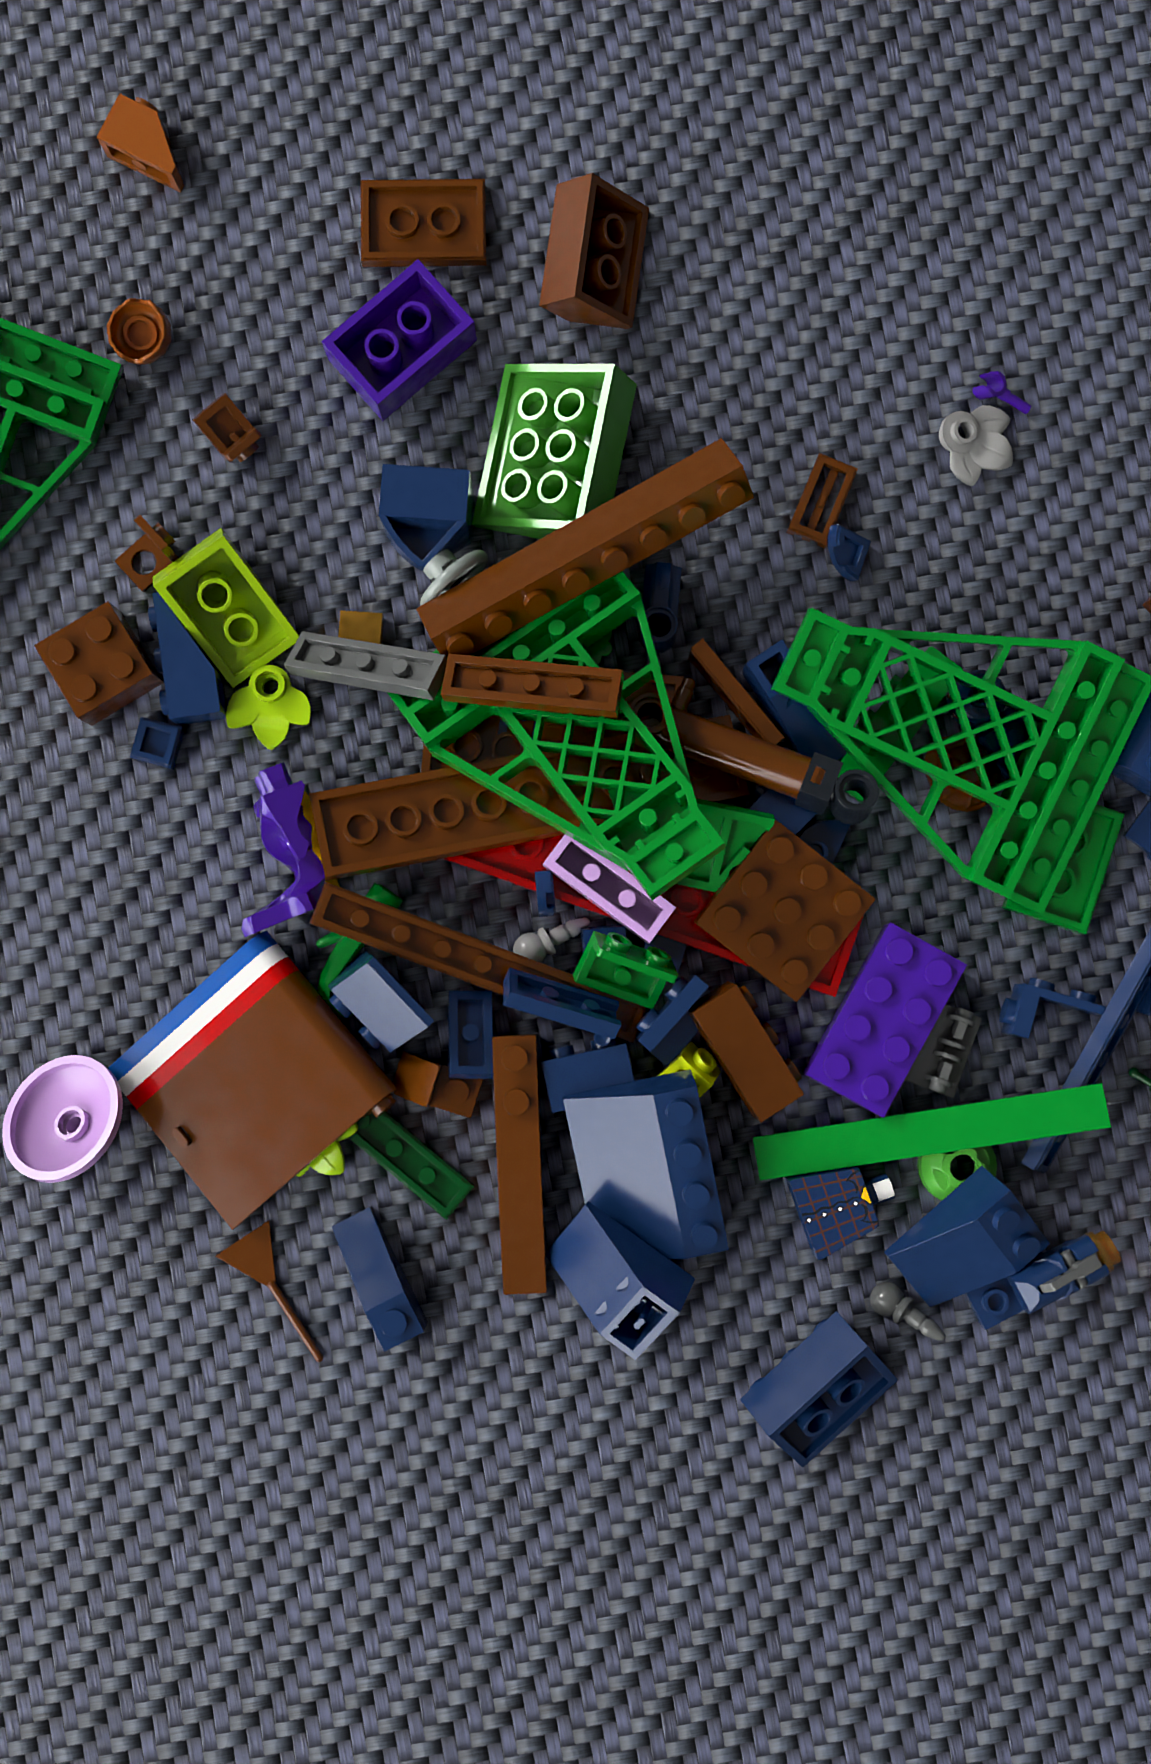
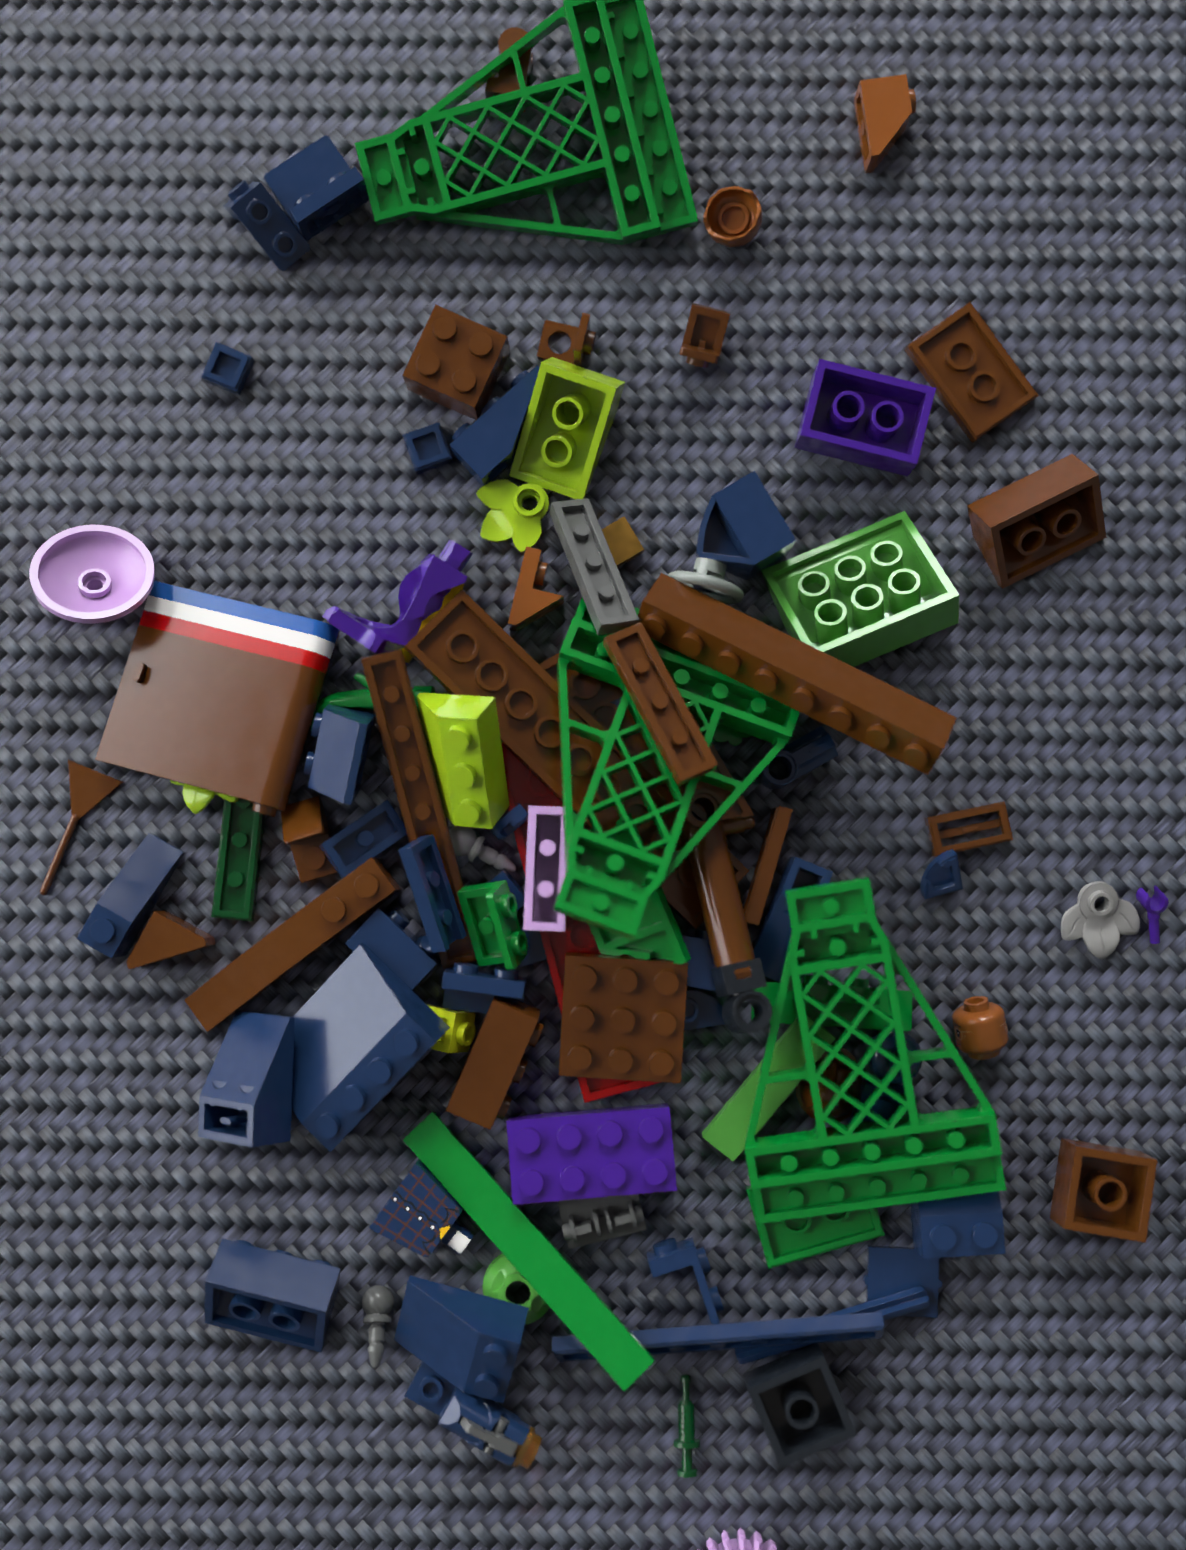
camera: 60 degrees right, 0 degrees up
(360, 744) = (529, 602): none -> dark orange slope
(438, 1273) = (167, 938): none -> reddish brown slope
(460, 891) = (466, 757): none -> lime slope
(940, 882) = (730, 1125): none -> bright green tile
(1001, 608) = (980, 1028): none -> dark orange head

